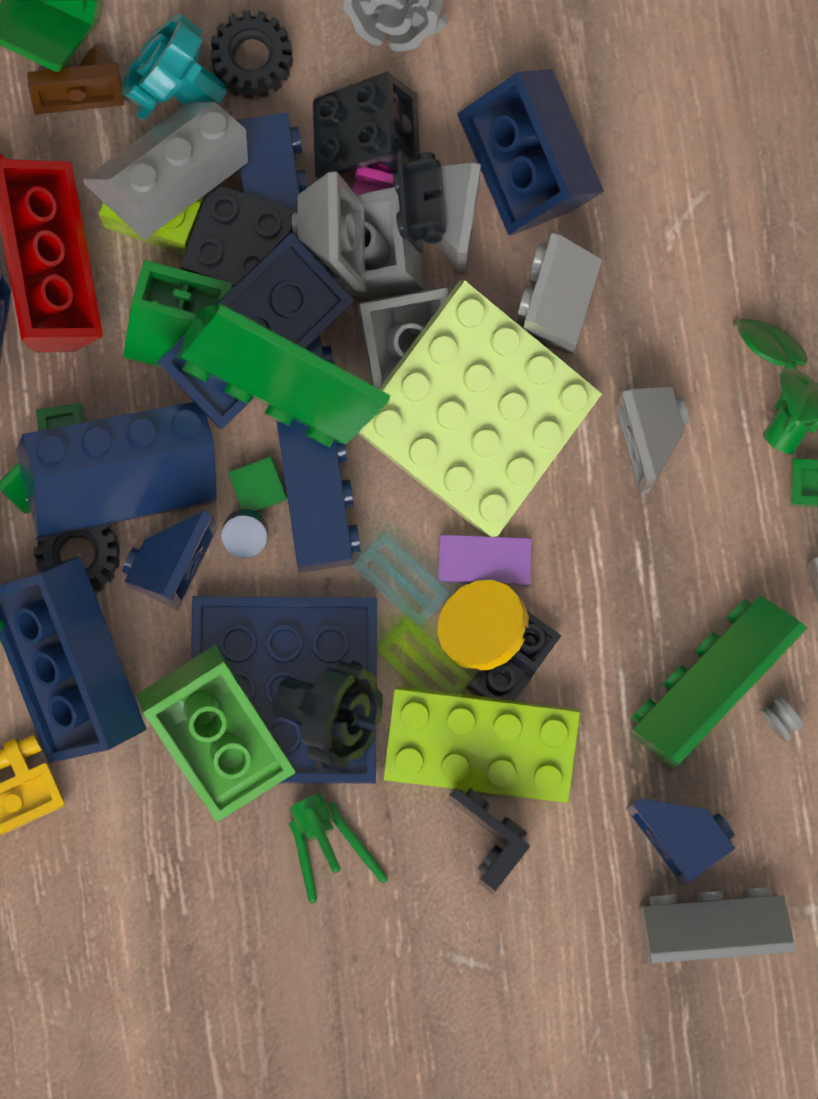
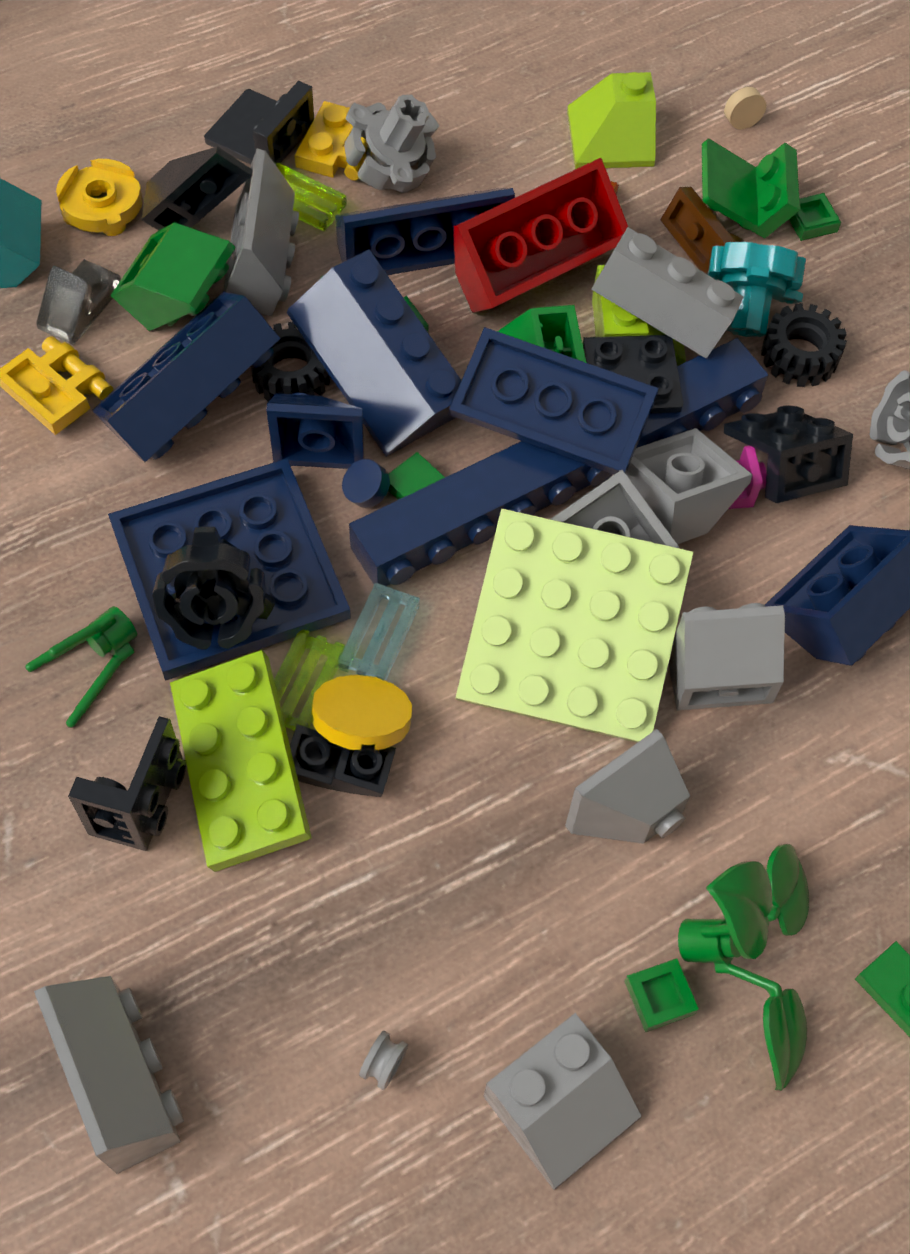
camera: 65 degrees right, 20 degrees down
(215, 733) = (155, 506): bright green slope -> none
(279, 375) = (515, 406): green slope -> none
(333, 228) = (683, 428): light grey slope -> none
(418, 216) = (745, 488): black hinge -> none
(459, 196) = (757, 542): light grey slope -> none
(484, 558) = (434, 701): medium lavender tile -> none
(683, 836) = (201, 989): dark blue slope -> none
(716, 681) = (392, 966): green slope -> none

